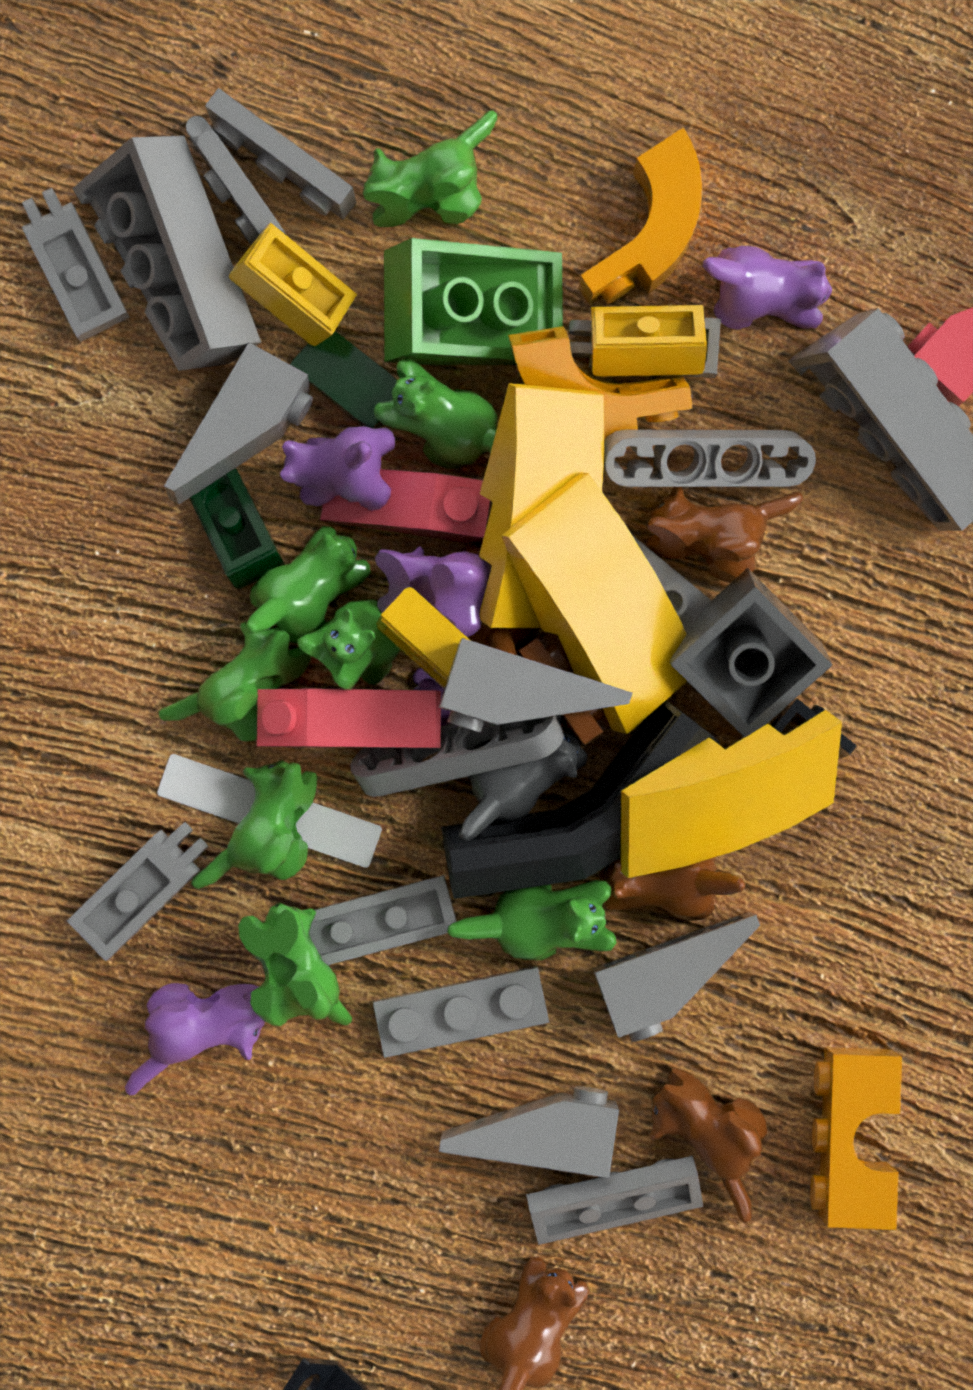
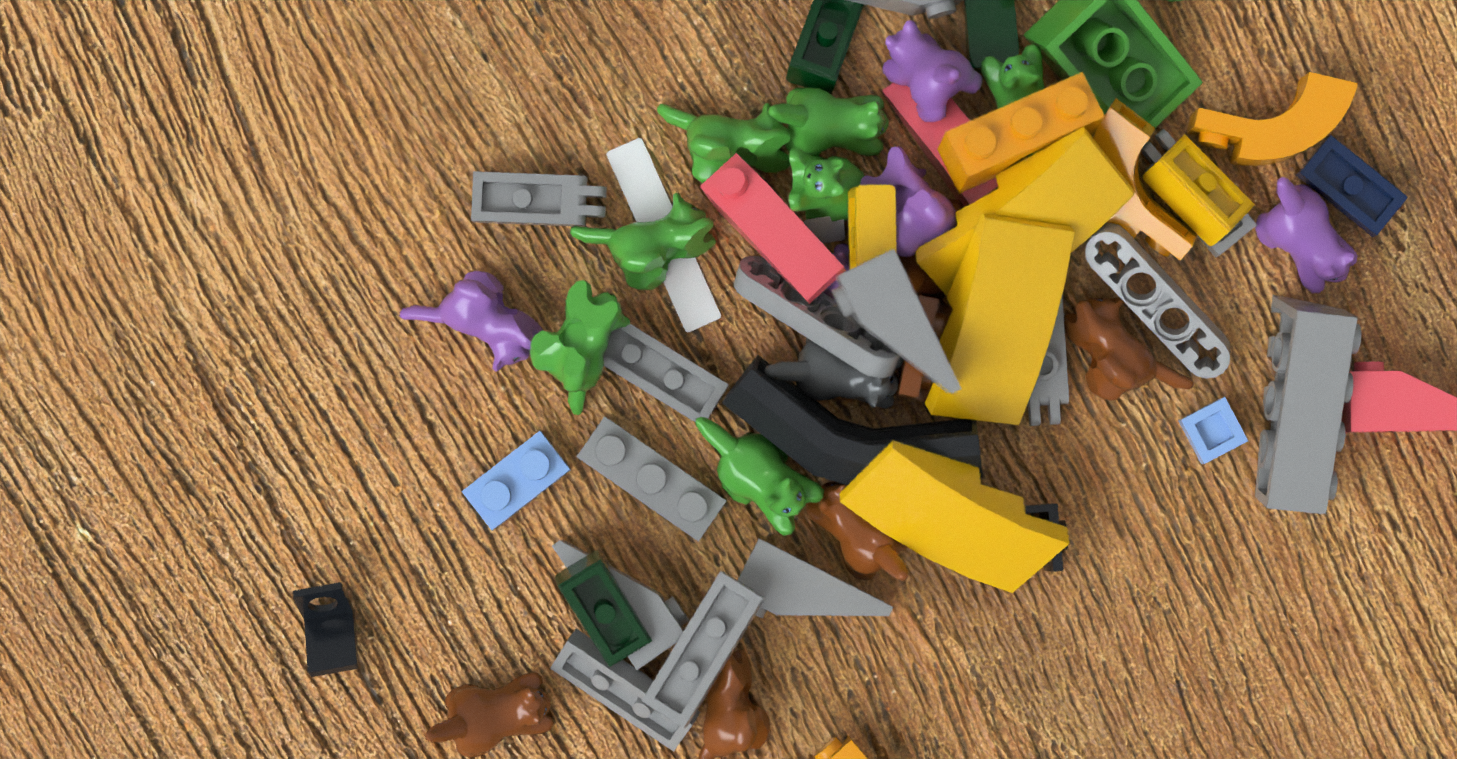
camera: 50 degrees right, 0 degrees up
(356, 1125) = (516, 480): none -> light blue plate
(391, 675) = (826, 230): none -> white sticker
(456, 450) = (1002, 137): none -> light orange arch
(530, 1159) = (602, 608): none -> dark green slope
(644, 1108) = (703, 649): none -> light grey plate
(749, 654) = (1057, 446): dark grey slope -> none
(761, 212) = (1351, 186): none -> dark blue plate
(854, 513) = (1213, 430): none -> light blue plate

